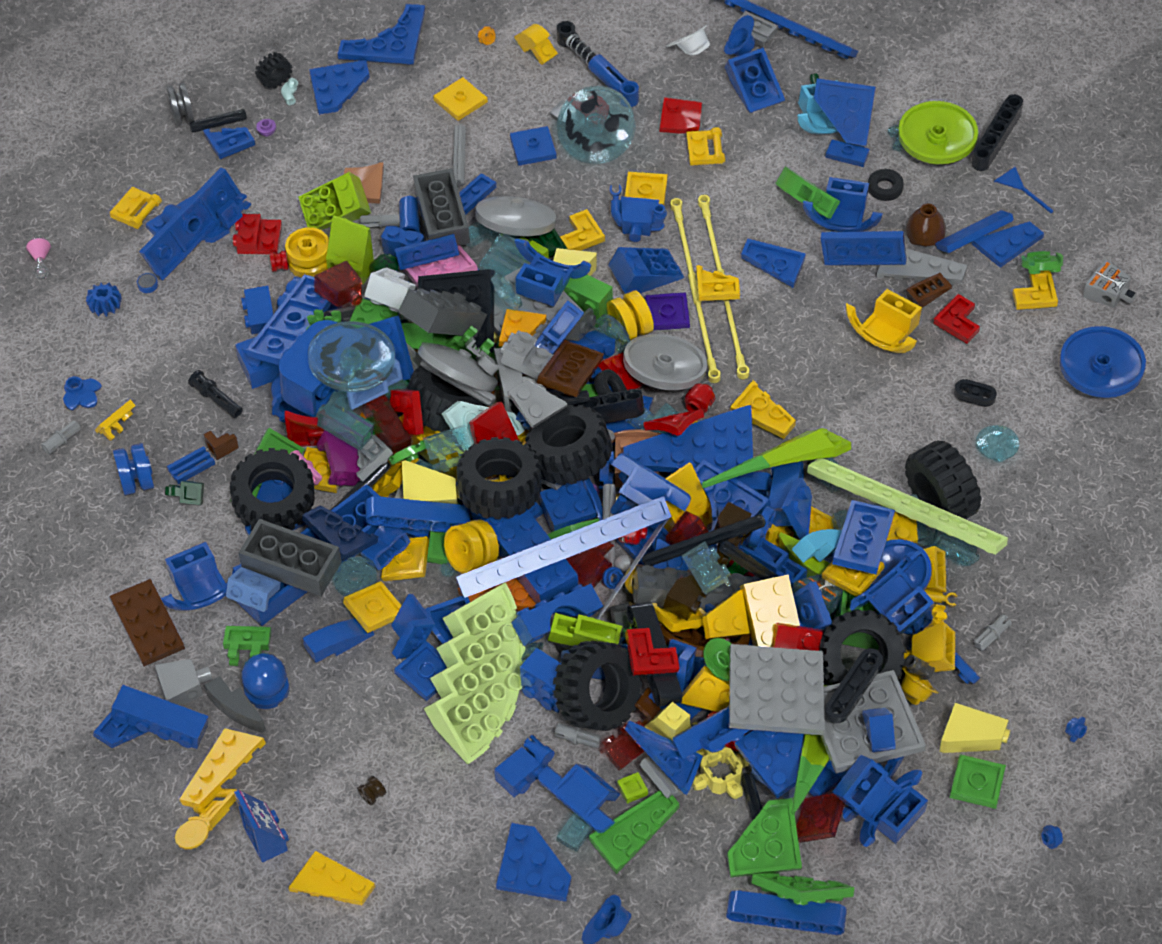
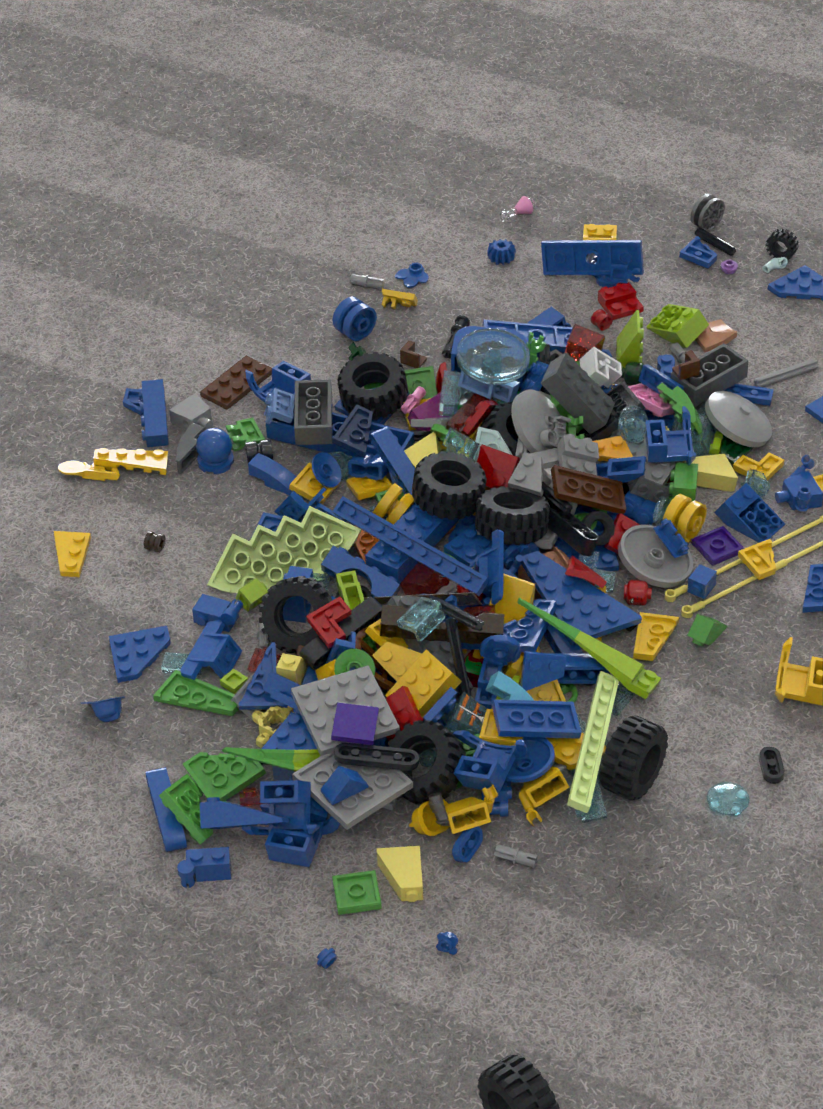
camera: 65 degrees right, 10 degrees down
(147, 283) = (534, 267): tile -> none
(188, 463) = (384, 347): blue tile -> none
(261, 826) = (87, 488): blue slope -> none
(290, 639) = (263, 448): none -> black wheel
(307, 251) = (612, 324): yellow wheel -> none
(373, 585) = (326, 469): none -> blue dish
(435, 215) = (689, 368): none -> reddish brown panel
(475, 245) = (677, 399): none -> bright green slope
(515, 724) = (252, 594): none -> lime brick
(607, 244) = (757, 482): none -> clear light blue piece
(647, 336) = (675, 543): none -> blue hinge
(722, 341) = (702, 581): none -> blue brick
(782, 366) = (705, 630): none -> bright green slope
(810, 684) = (355, 723): none -> dark purple tile
(848, 852) = (224, 815): none -> blue wedge
(885, 901) = (206, 864): none -> blue hinge

